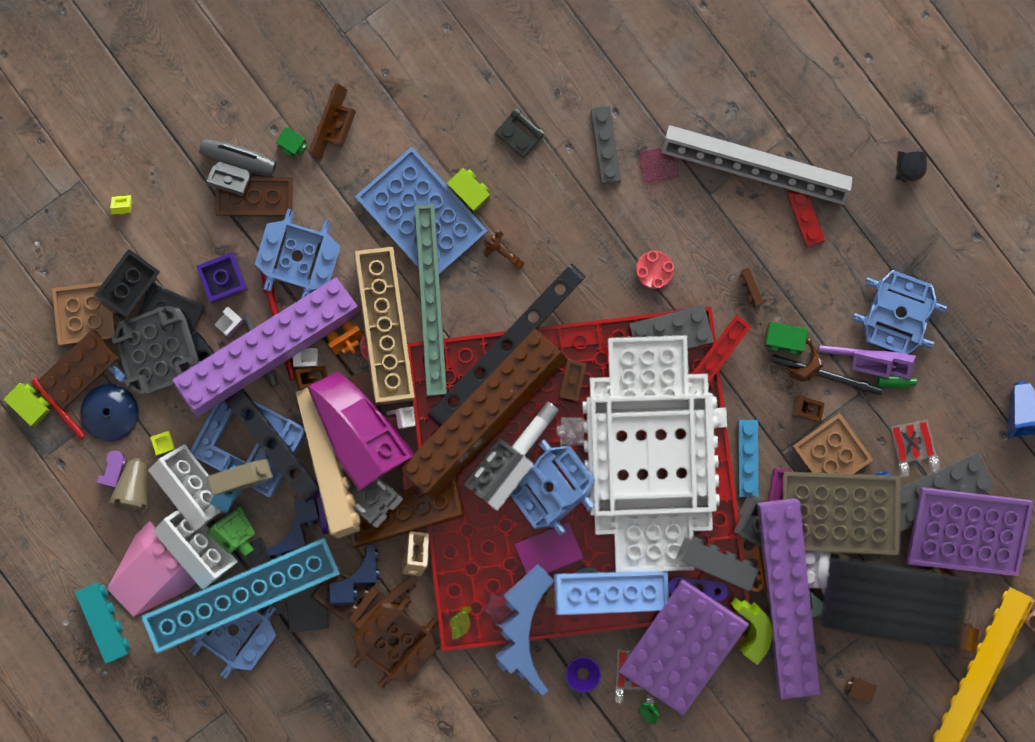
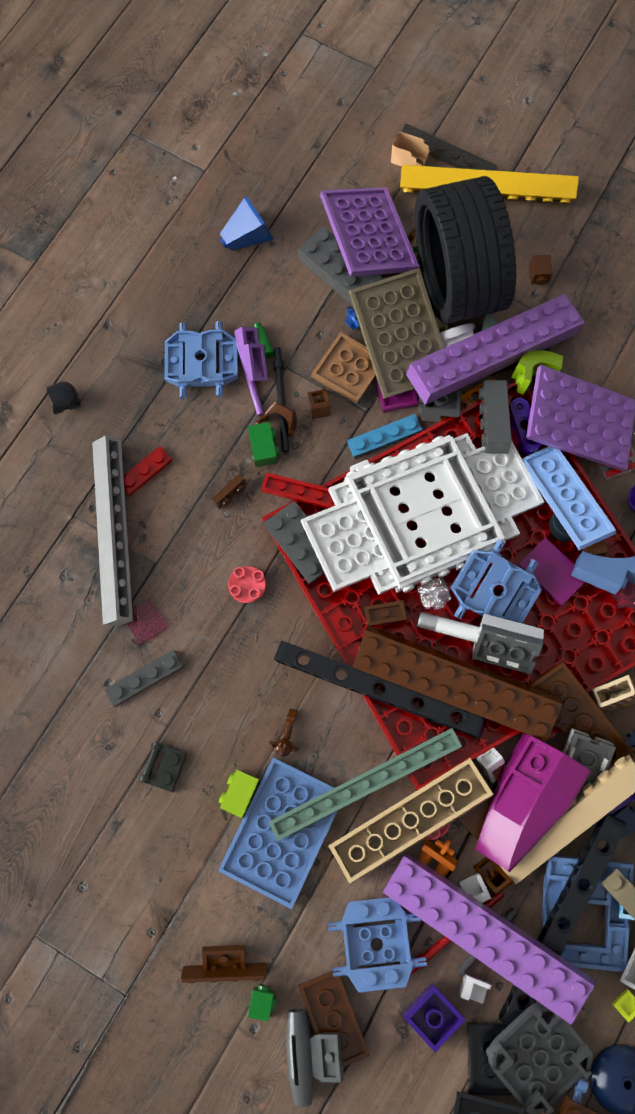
camera: 105 degrees left, 10 degrees down
(914, 443) = (311, 307): flag -> none

